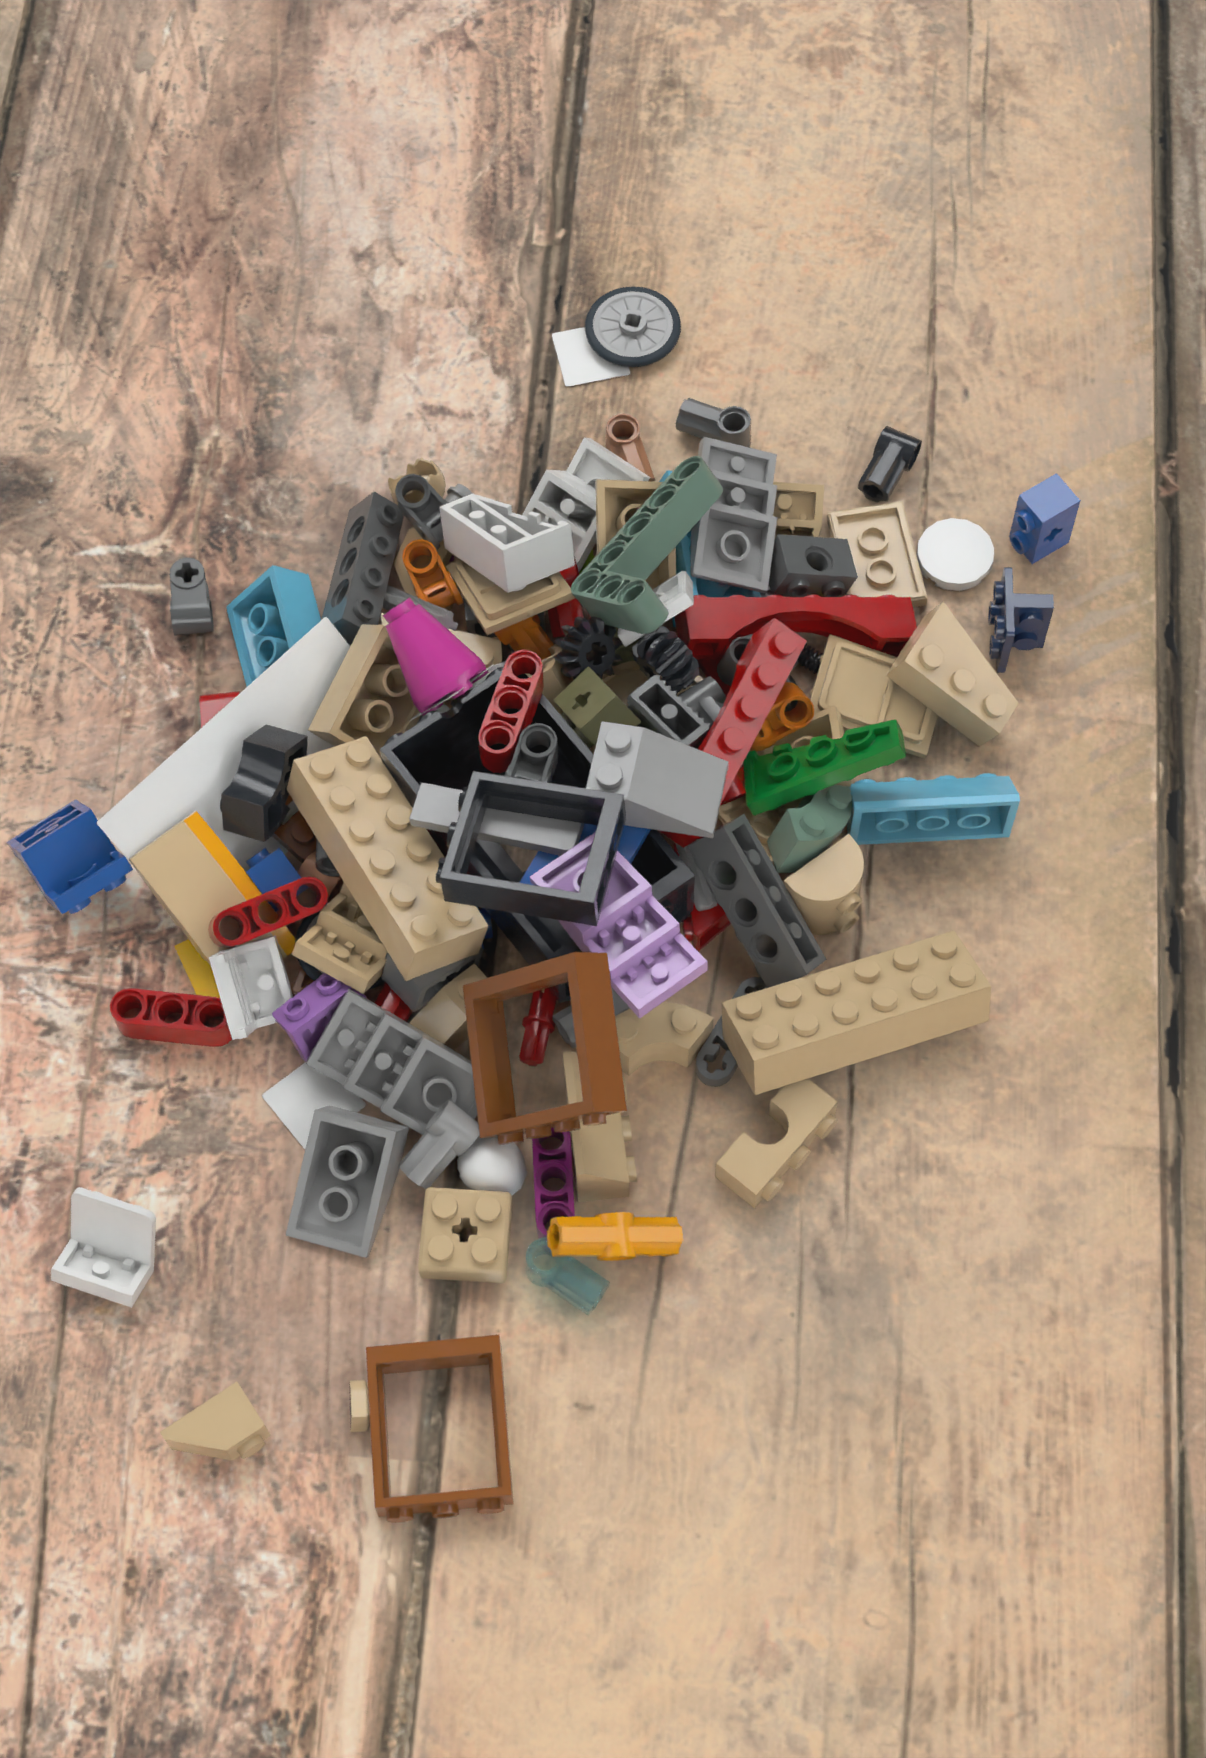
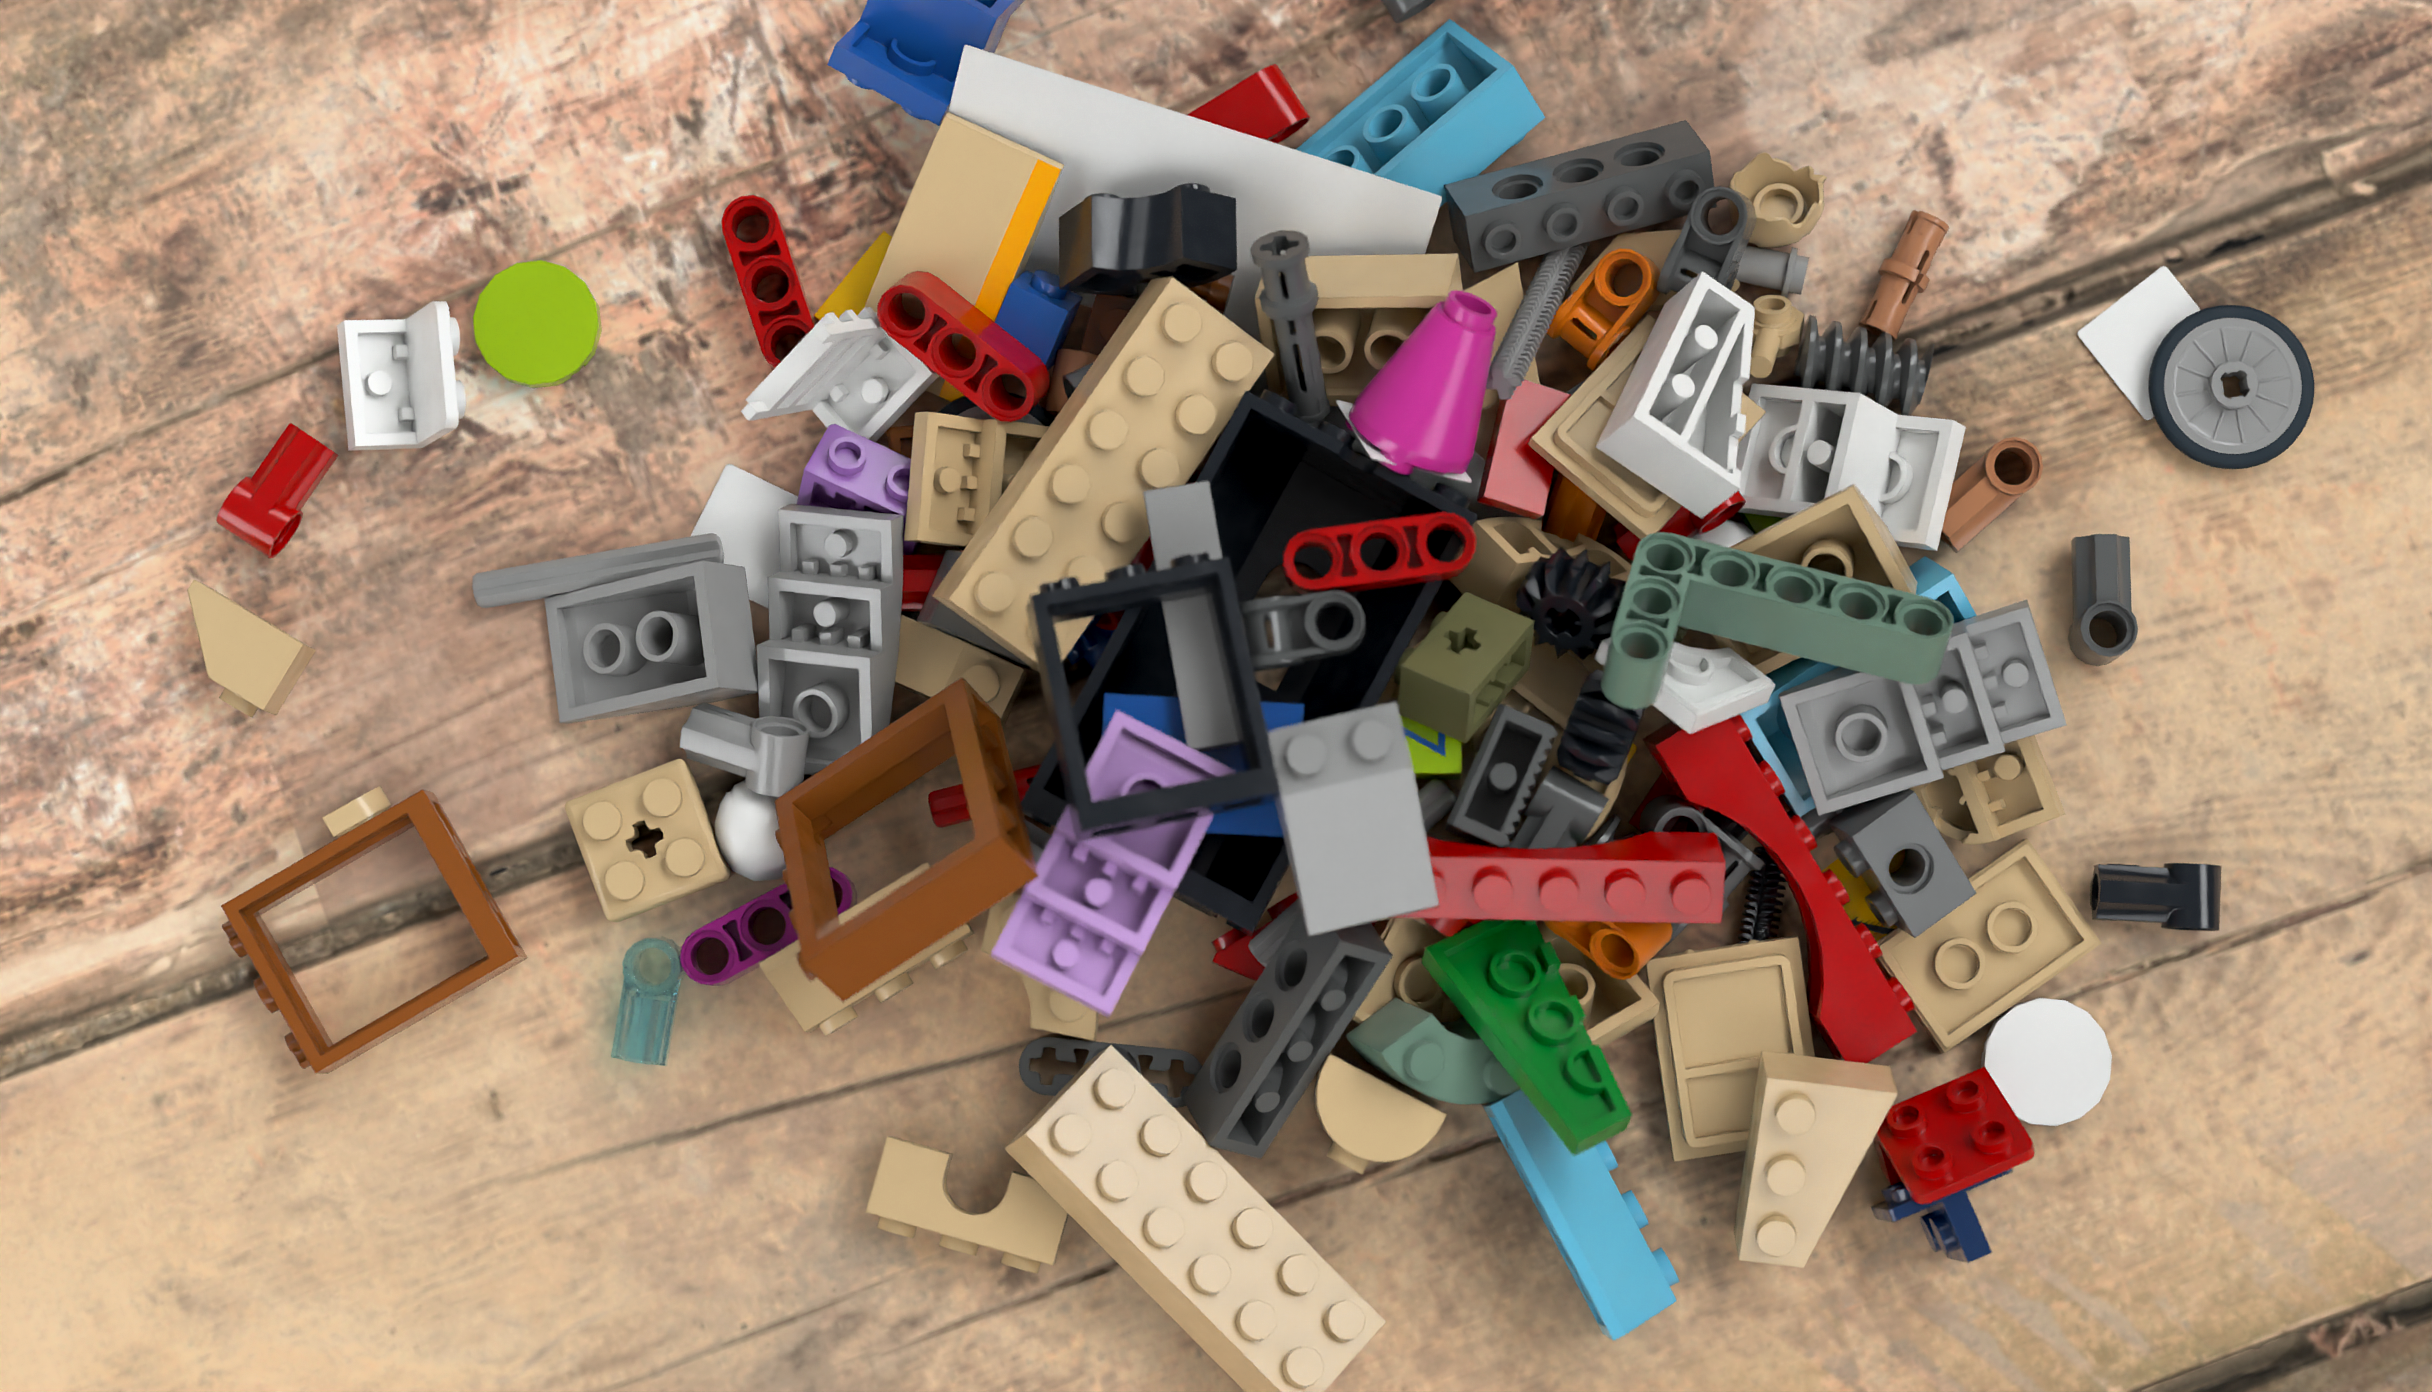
camera: 65 degrees right, 20 degrees up
(118, 1163) = (537, 324): none -> lime tile
(136, 1370) = (269, 504): none -> red piece
(280, 1206) = (590, 570): none -> light grey axle
(342, 709) = (1290, 303): none -> dark grey pin
(489, 648) = (1514, 473): none -> tile
(491, 448) = (1904, 274): none -> nougat pin
(524, 478) = (1861, 367): none -> dark grey piece
(614, 1236) = (720, 1047): light orange piece -> none
(981, 595) = (1951, 1138): none -> red bracket
(1044, 518) = (2149, 1177): blue brick -> none

